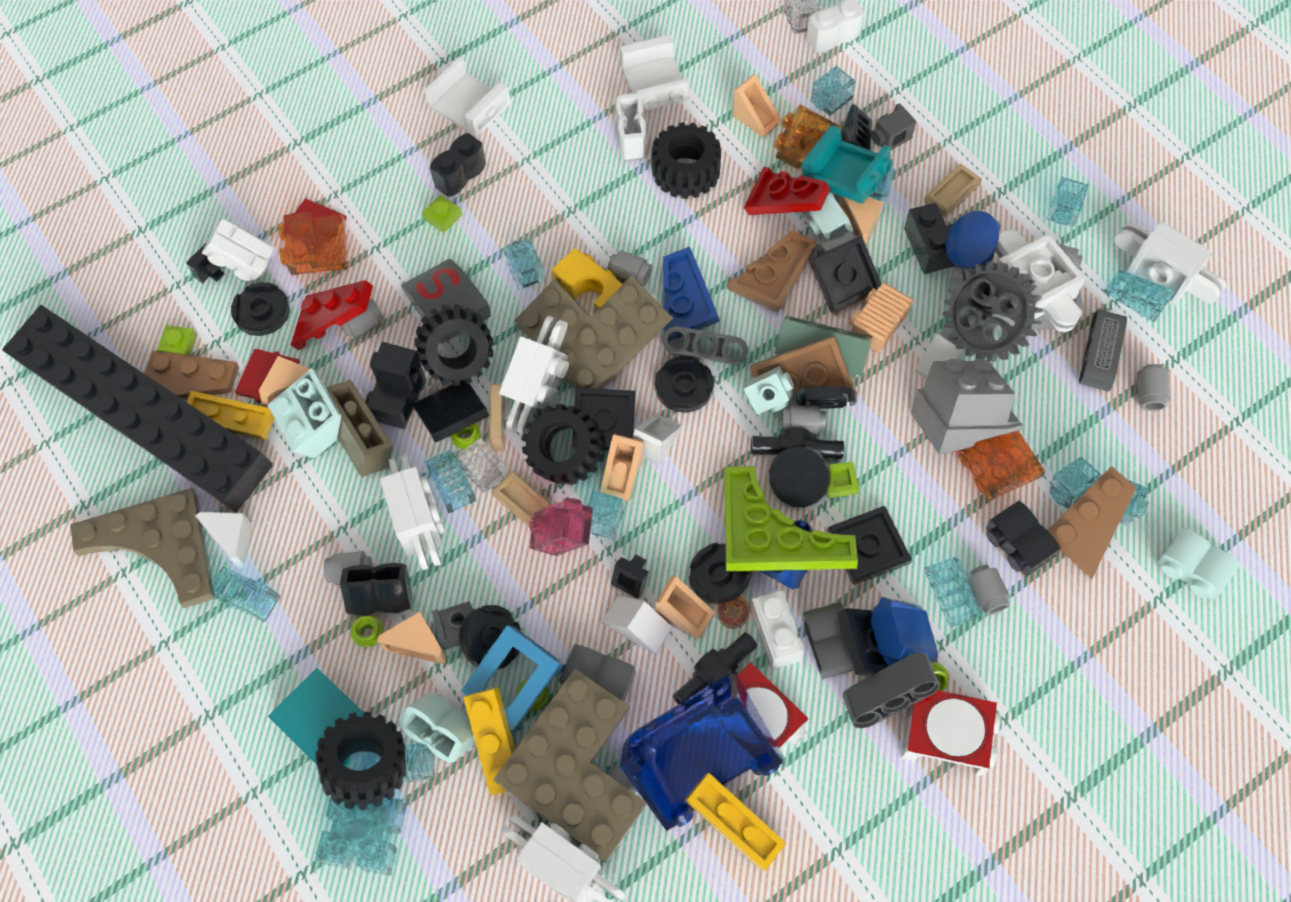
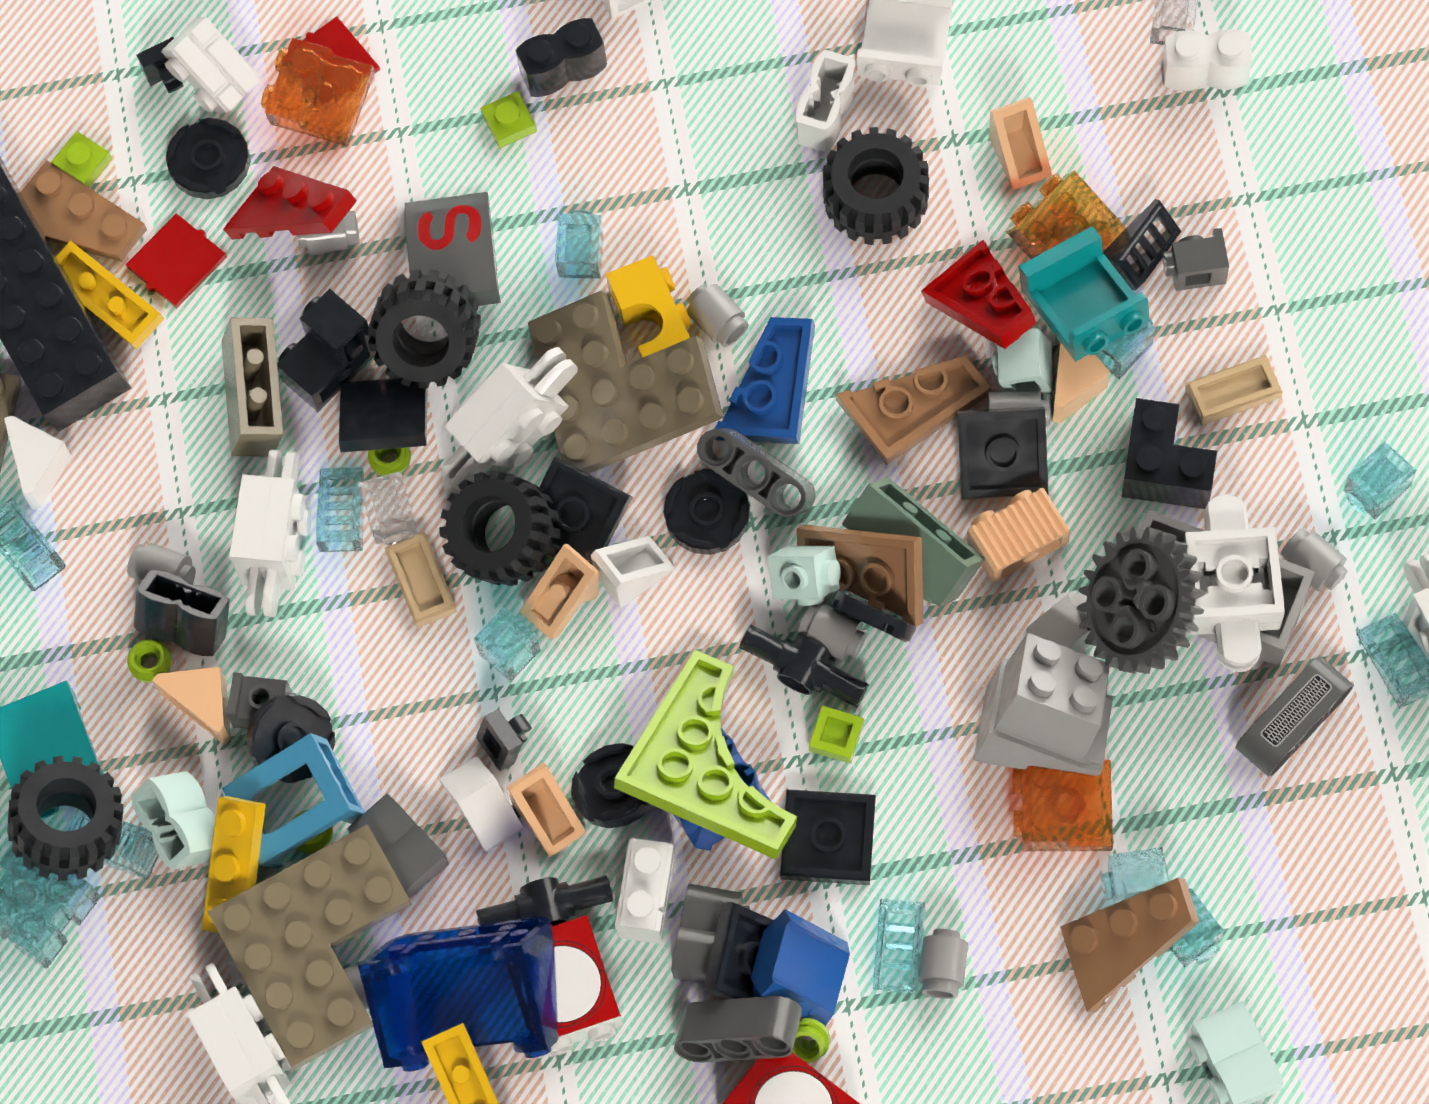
camera: 30 degrees right, 5 degrees up
(279, 378) = (193, 282): light nougat slope -> none
(307, 415) = (195, 344): light aqua slope -> none
(497, 418) = (435, 455): tan tile -> none
(561, 527) = (441, 636): clear pink brick -> none
(733, 613) = (607, 845): clear orange tile -> none
(800, 476) = (781, 706): black tile -> none
(833, 90) = (1144, 164): clear light blue brick -> none
(972, 239) = (1182, 485): blue dish -> none
(1022, 538) = (1025, 919): black brick -> none
(1153, 387) = (1330, 799): light grey brick -> none

